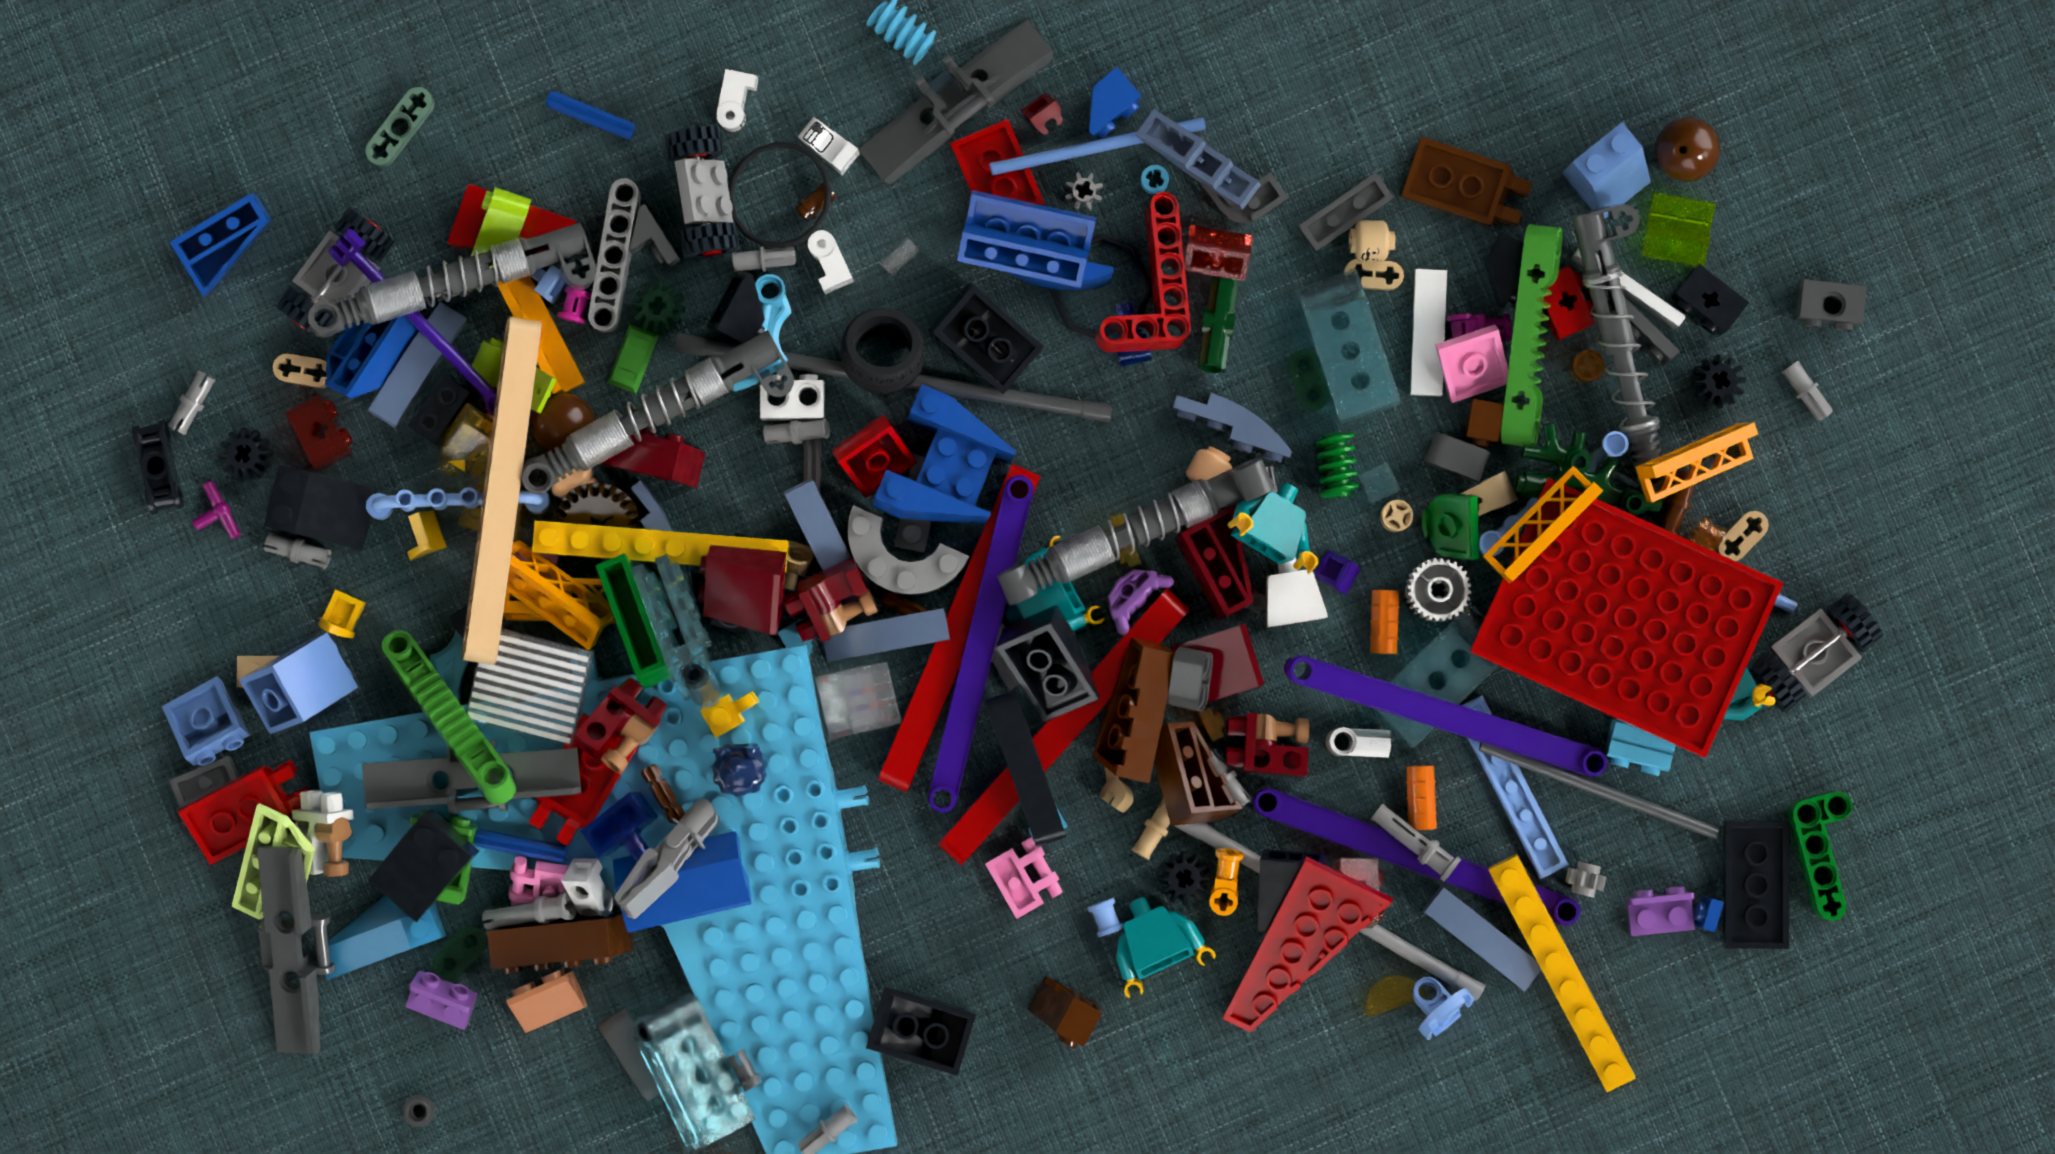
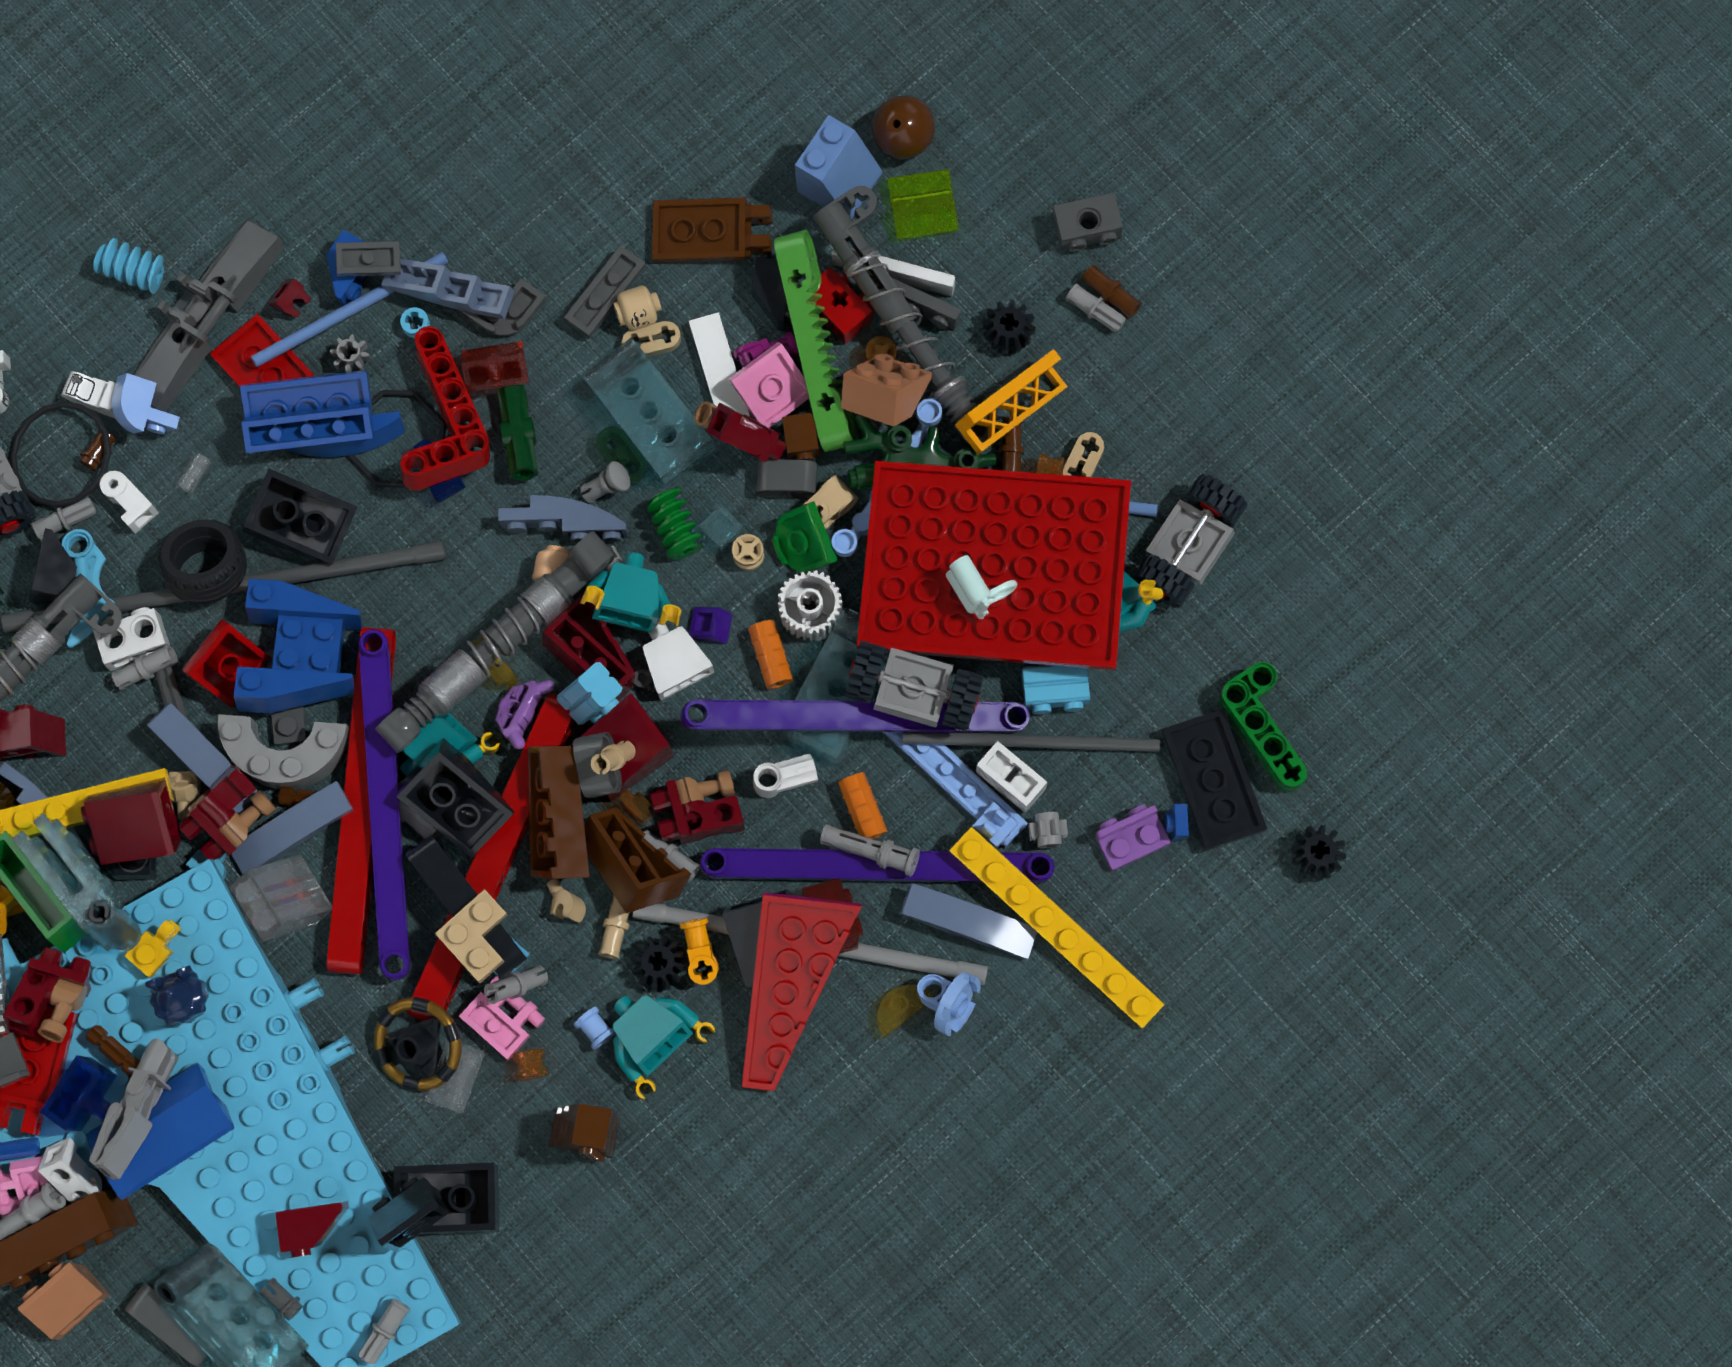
camera: 20 degrees left, 10 degrees down
(789, 1014) = (307, 1226): none -> dark red slope
(864, 173) = (132, 406): none -> light blue brick
(884, 1039) = (407, 1214): none -> black slope
(939, 877) = (417, 1044): none -> black piece
(962, 915) = (456, 1092): none -> clear slope
(1017, 802) = (465, 935): none -> tan plate
(1035, 930) = (530, 1064): none -> clear orange wheel
(1047, 854) = (515, 984): none -> light grey pin
(1132, 107) = (368, 258): none -> dark grey plate
(1206, 609) = (590, 695): none -> medium azure brick
(1209, 682) = (613, 757): none -> tan pin
(1290, 404) = (611, 480): none -> light grey pin
(1429, 403) = (739, 431): none -> dark red hips
(1510, 710) = (914, 687): none -> plate
(1538, 858) = (995, 825): none -> light blue tile
(1551, 533) = (892, 506): light orange fence -> none
(1569, 819) = (1011, 777): none -> white brick
(1581, 409) = (884, 389): none -> nougat slope
(1598, 638) = (972, 588): none -> light aqua piece
(1725, 306) = (962, 245): black brick -> none
(1827, 974) = (1308, 844): none -> black gear
(1828, 379) = (1111, 291): none -> reddish brown pin

